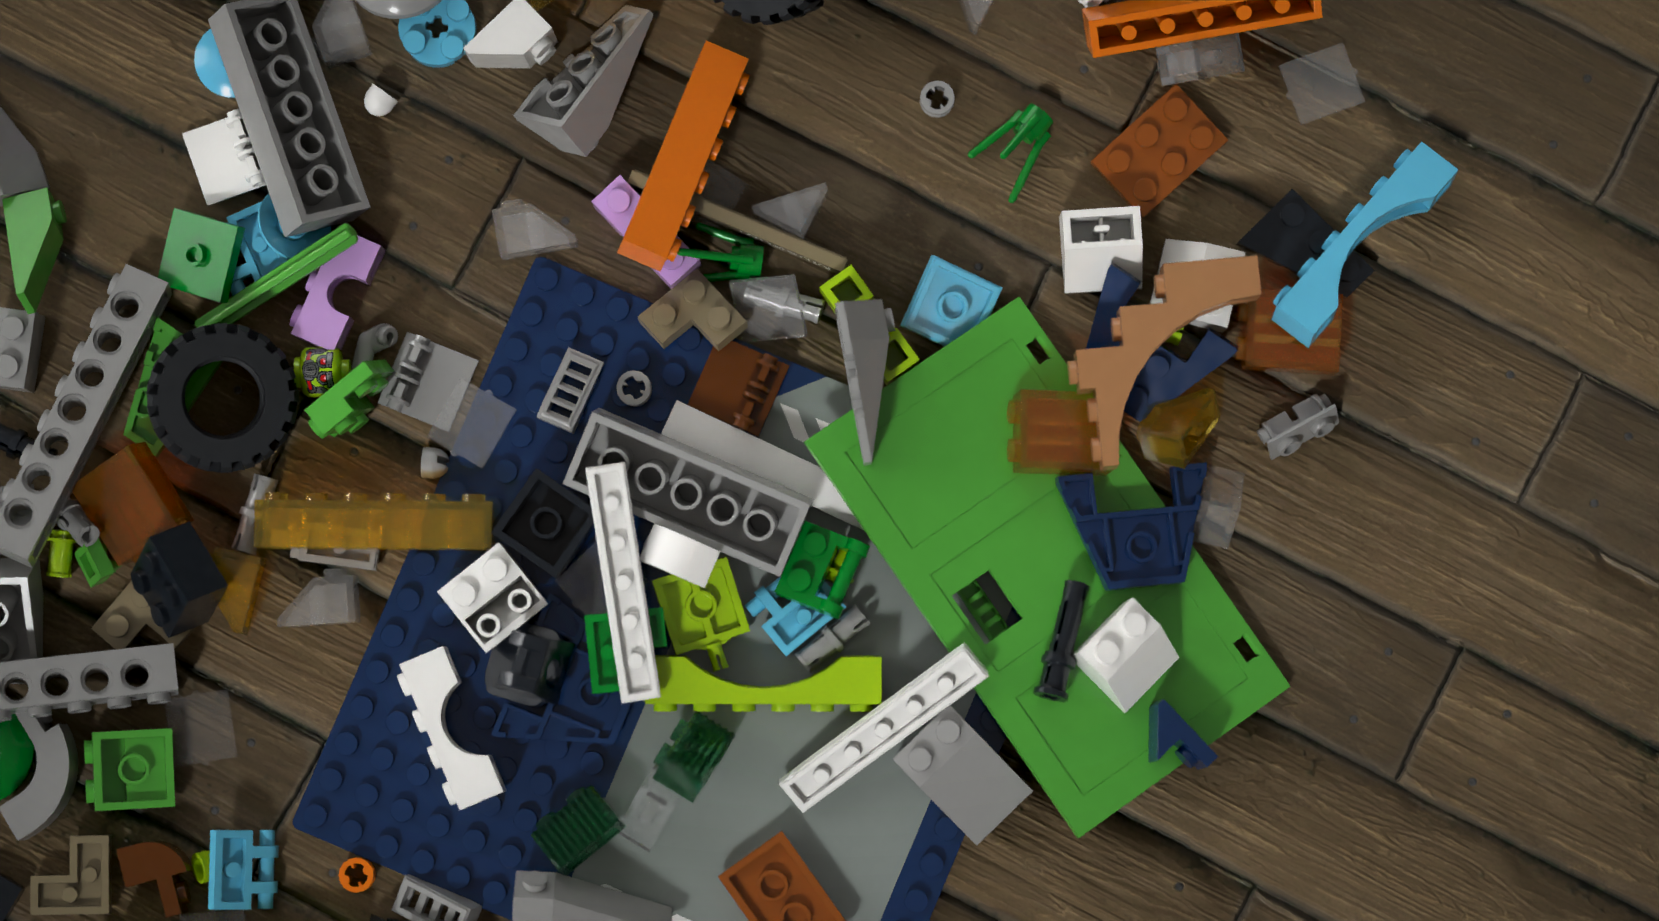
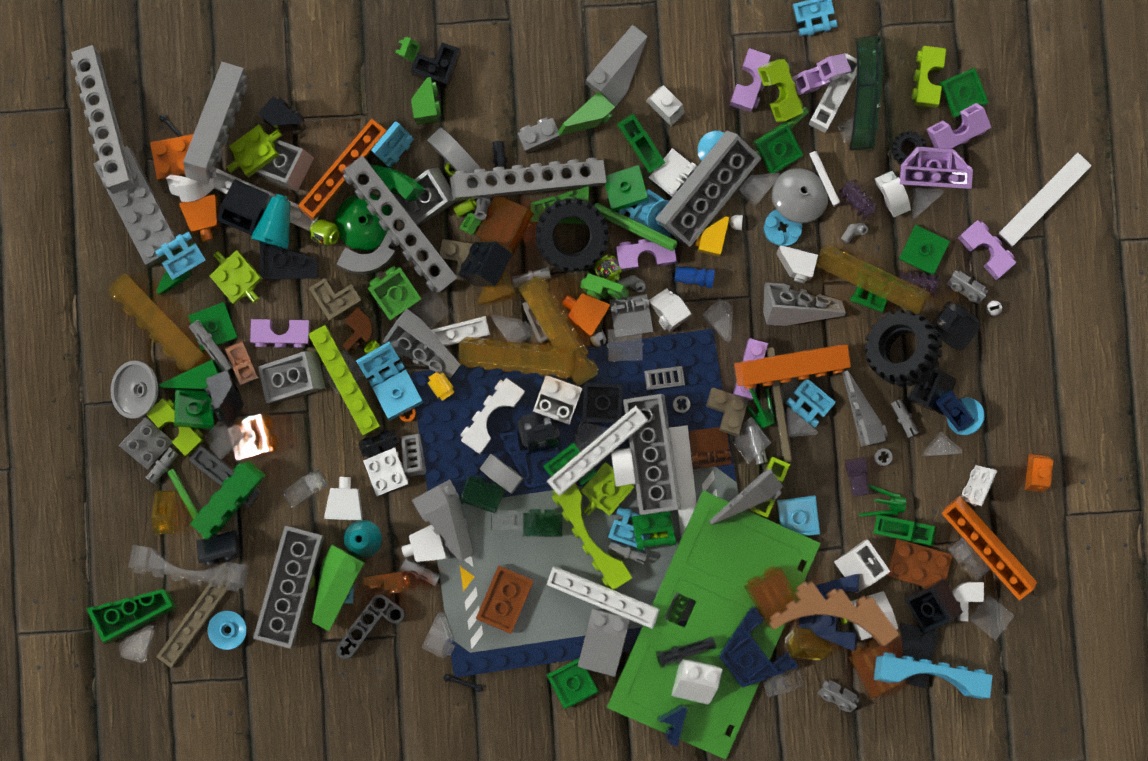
camera: 55 degrees right, 0 degrees up
(99, 96) = (666, 105): none -> white torso
(138, 182) = (640, 143): none -> green slope
(239, 782) = (416, 341): none -> light grey wedge
(273, 696) = (456, 332): none -> white tile
(314, 872) = (397, 395): none -> medium azure plate
(343, 786) = (440, 385): none -> yellow brick
(373, 455) = (586, 312): none -> orange torso
(375, 622) = (517, 357): none -> clear yellow brick
(381, 158) = (712, 238): none -> yellow slope
(428, 229) = (695, 276): none -> blue axle
(459, 307) = (669, 309): none -> white wedge
(561, 774) = (501, 473): none -> light grey slope
(762, 154) = (812, 396): none -> medium azure plate
(858, 89) = (866, 421): none -> light grey wedge
(892, 21) = (904, 418): none -> light grey pin
(934, 158) = (857, 471): none -> clear purple piece
(1001, 873) = (572, 684): none -> green plate
(1085, 138) = (905, 530): none -> green slope
(1243, 168) = (933, 605): none -> black brick
(1254, 105) = (966, 593): none -> white brick

